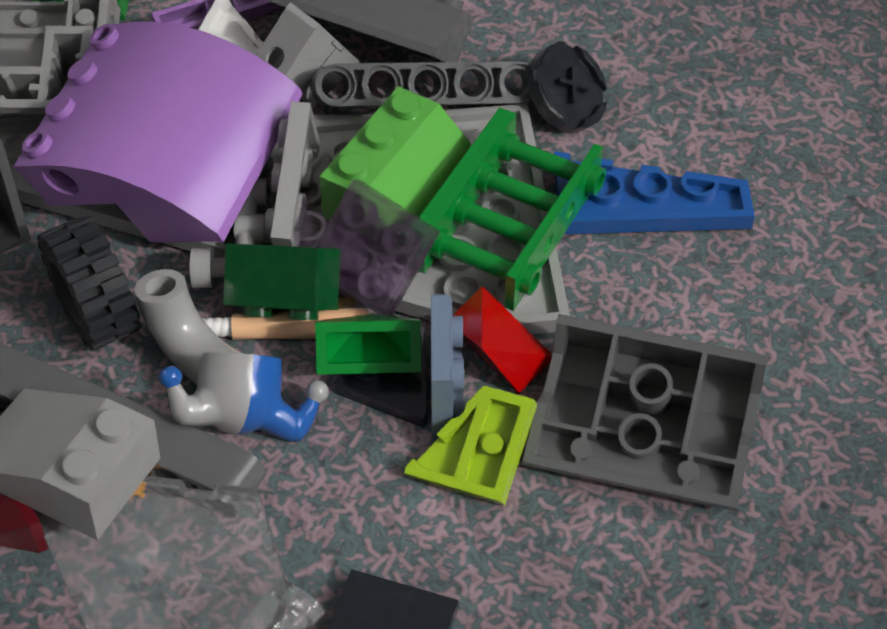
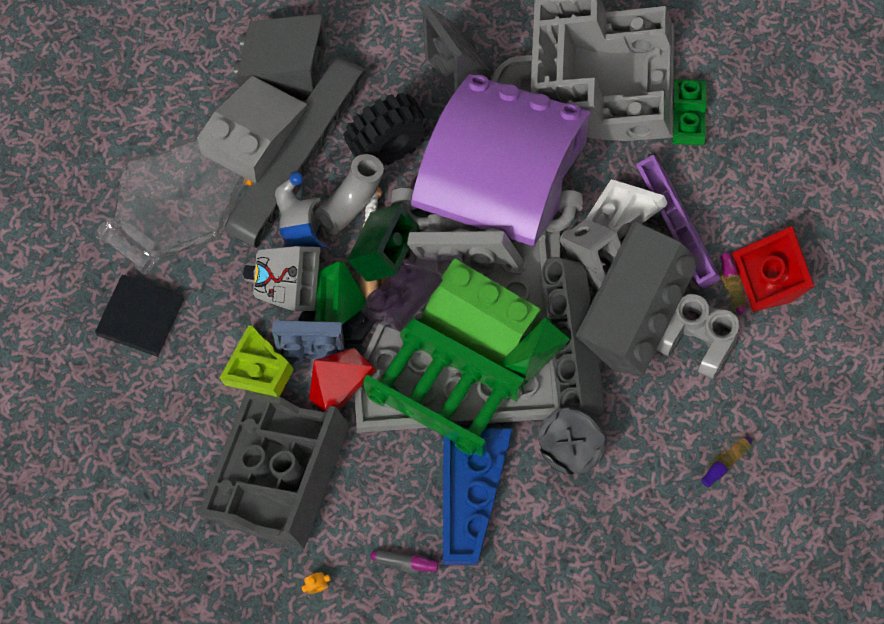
camera: 95 degrees right, 15 degrees up
(330, 407) = (285, 276): none -> light grey torso
(461, 94) = (535, 350): none -> green slope
(756, 268) = (405, 562): none -> piece
(810, 364) = (316, 583): none -> light orange piece

